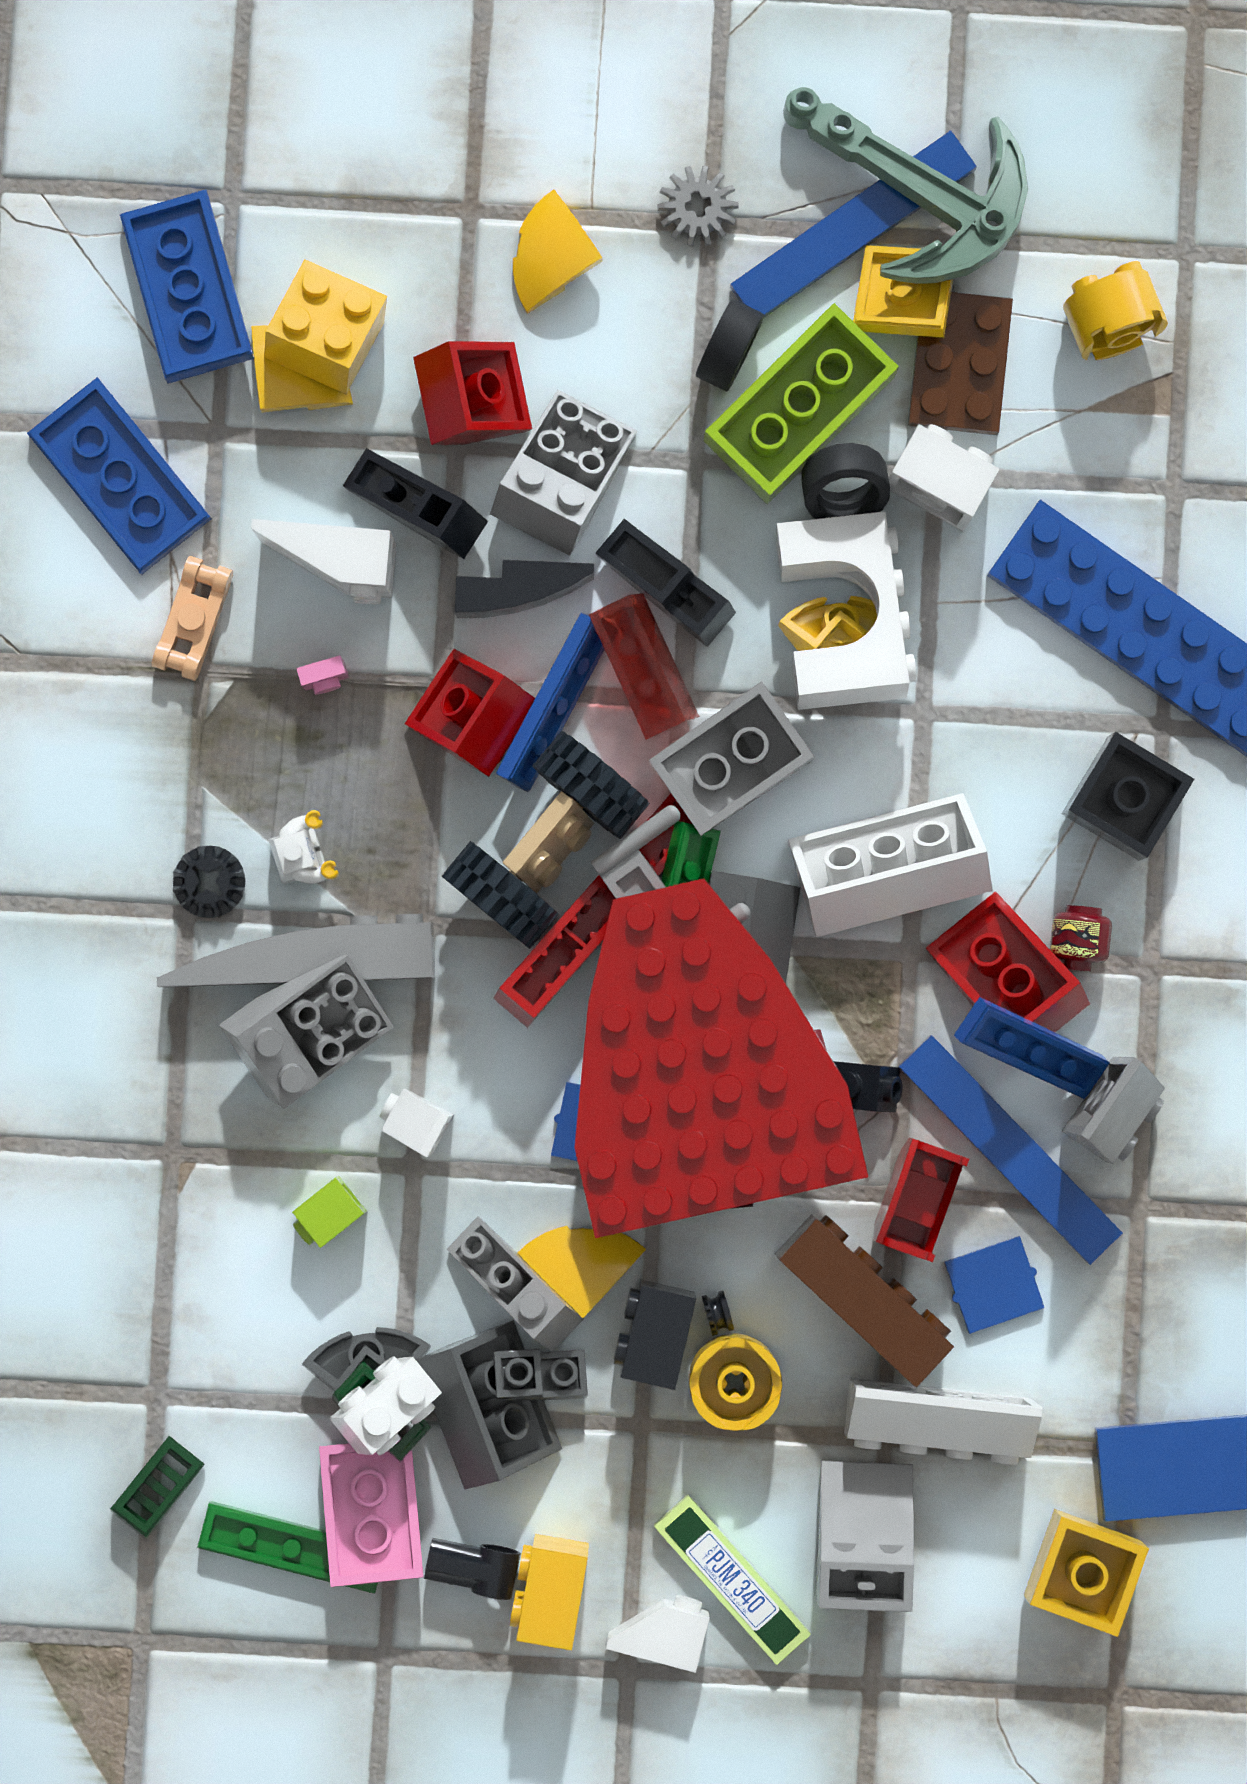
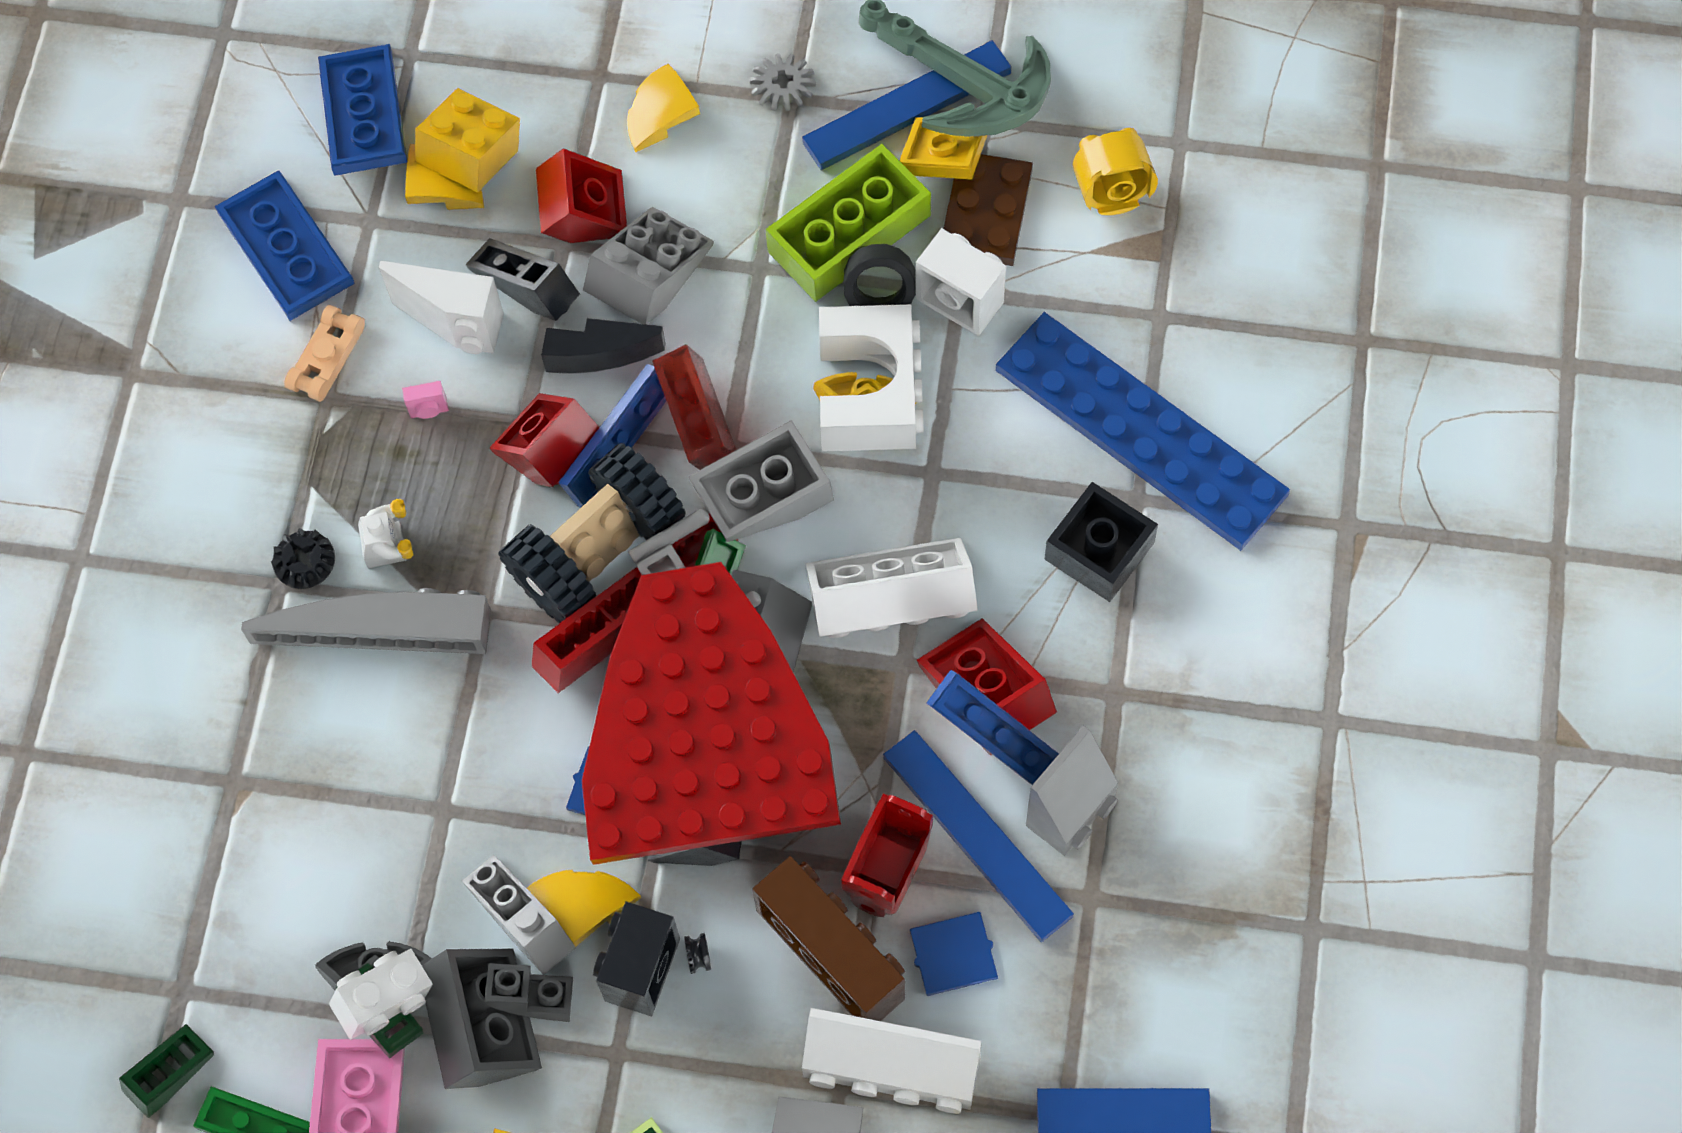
camera: 10 degrees right, 20 degrees down
(306, 1029) = (365, 674): light grey slope -> none
(327, 1213) = (359, 836): lime brick -> none
(415, 1121) = (451, 763): white slope -> none
(666, 582) = (725, 353): black slope -> none
(729, 345) = (794, 173): black tyre -> none
(733, 1408) = (715, 990): yellow brick -> none
(872, 1086) = (857, 768): black bracket -> none
(1081, 937) = (1054, 653): dark red head -> none

